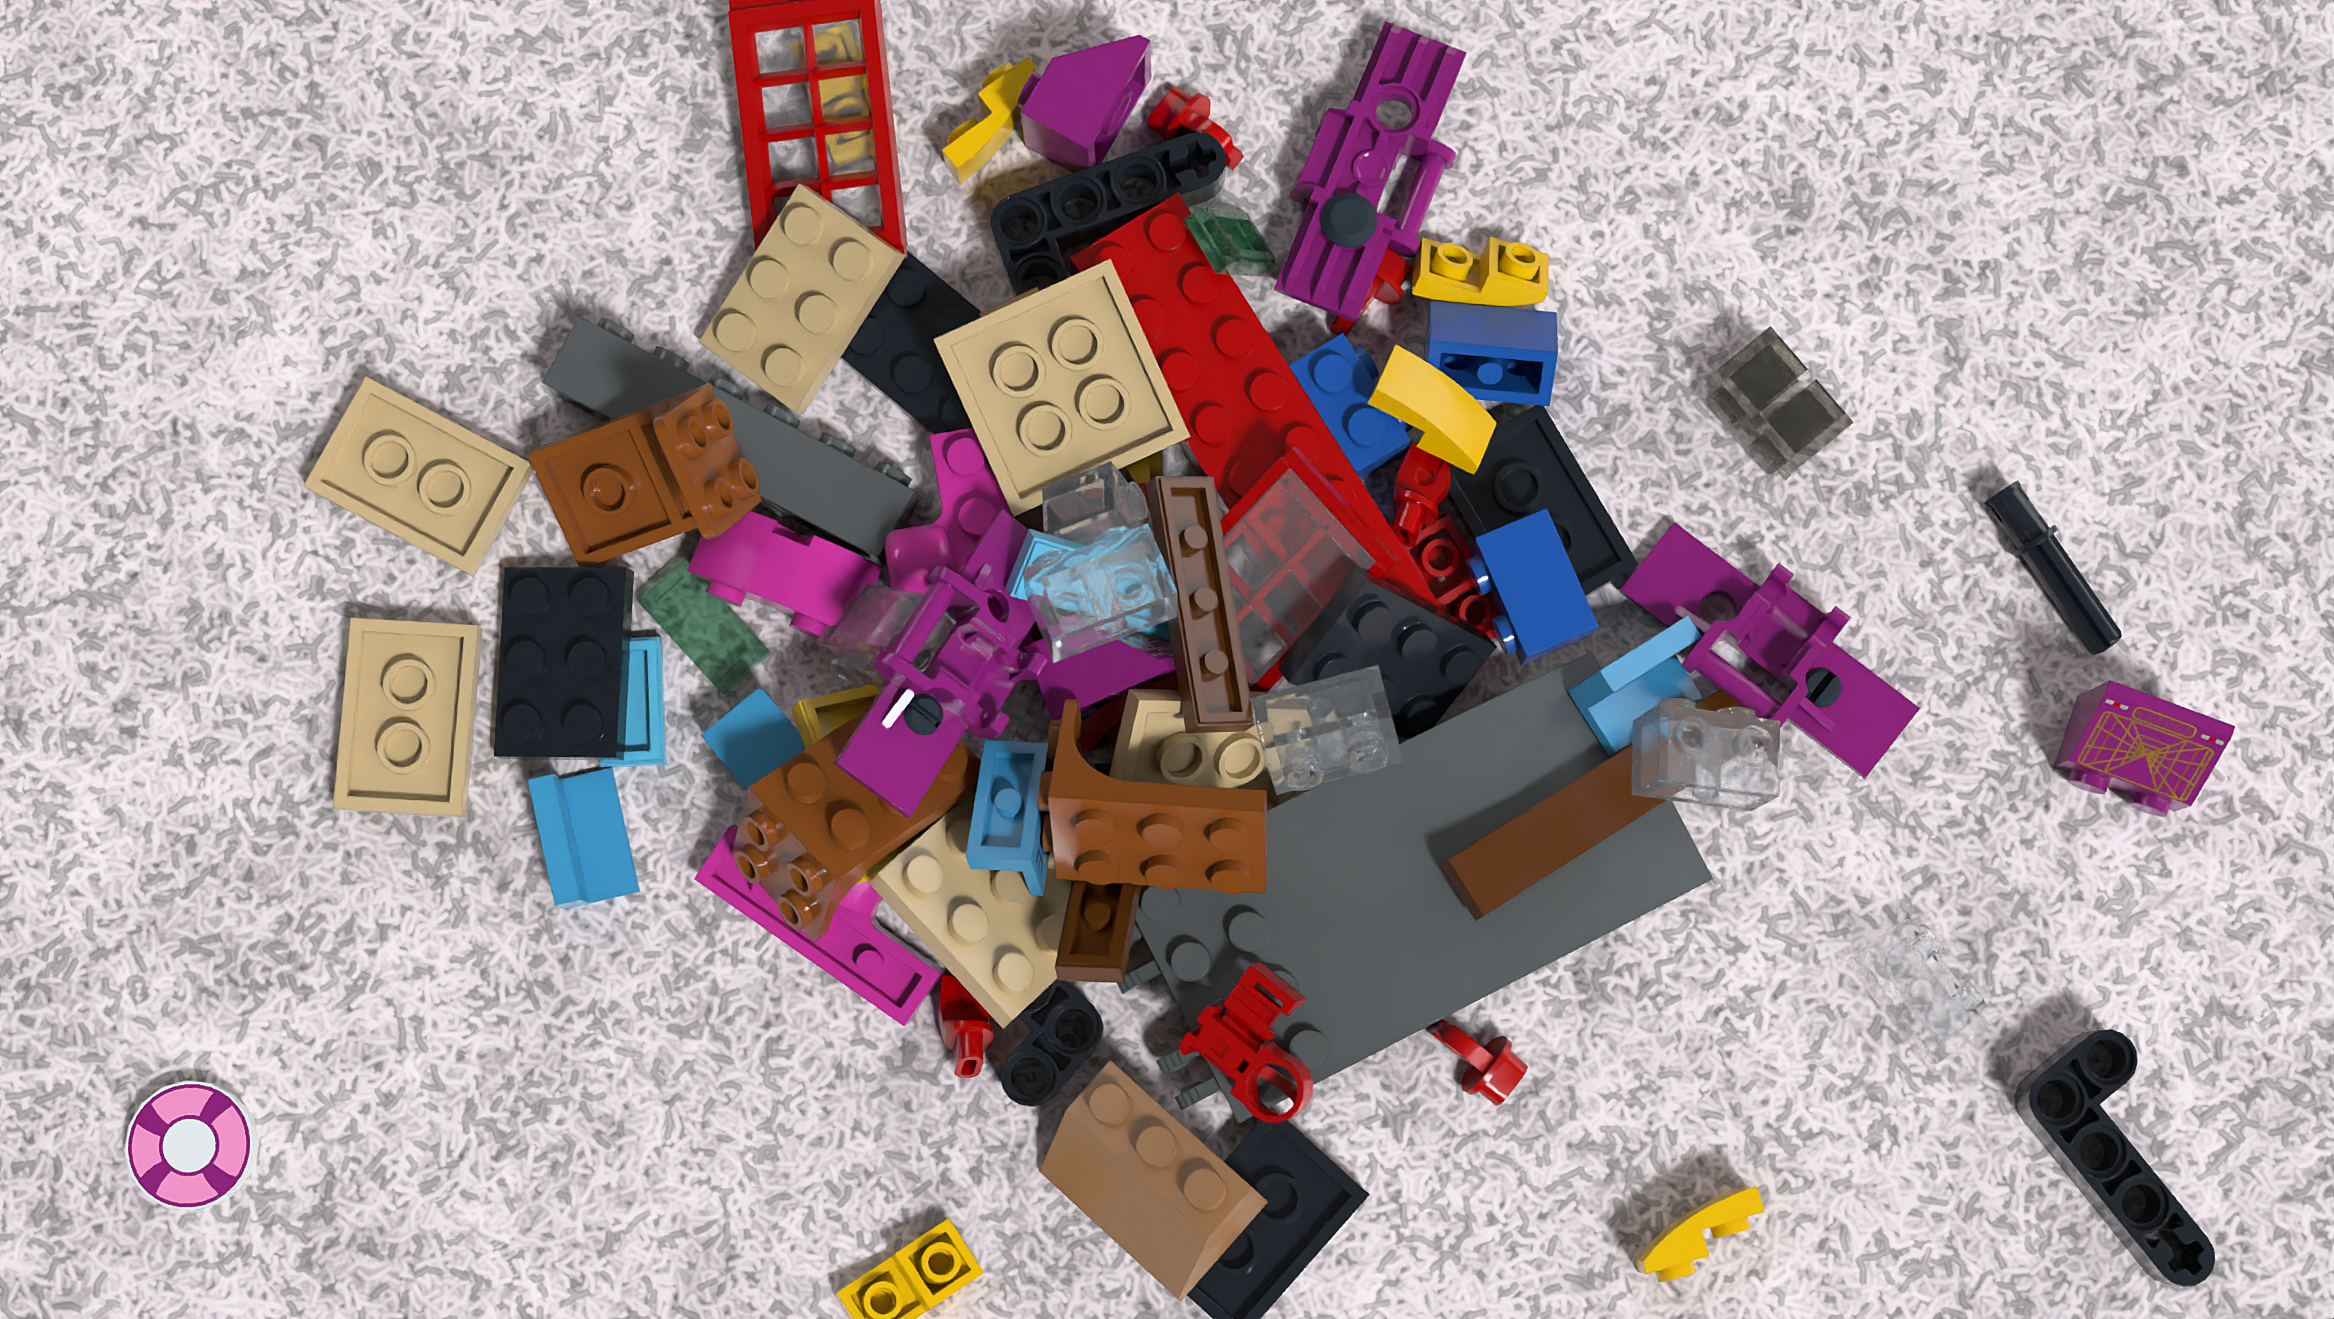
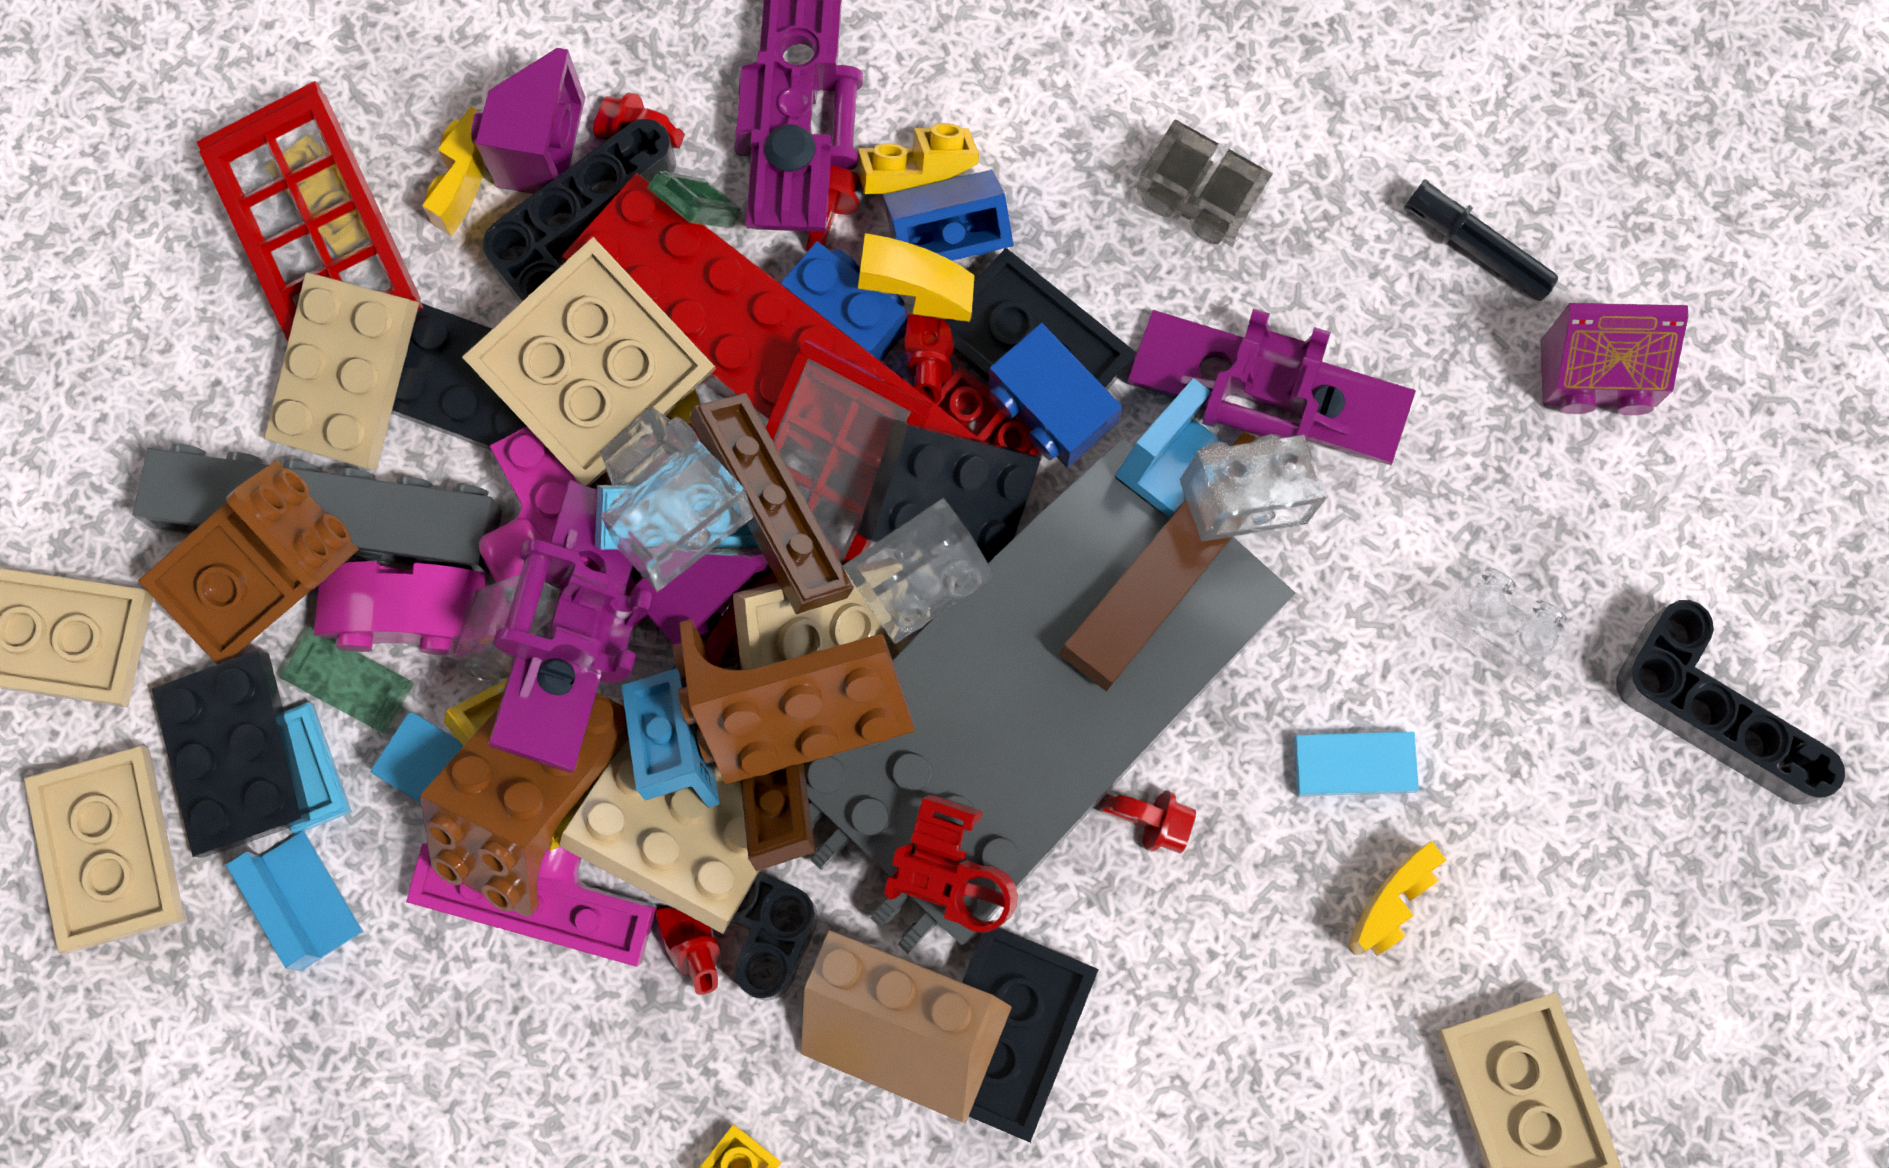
camera: 20 degrees left, 5 degrees down
(1711, 1077) = (1356, 764): none -> medium azure tile

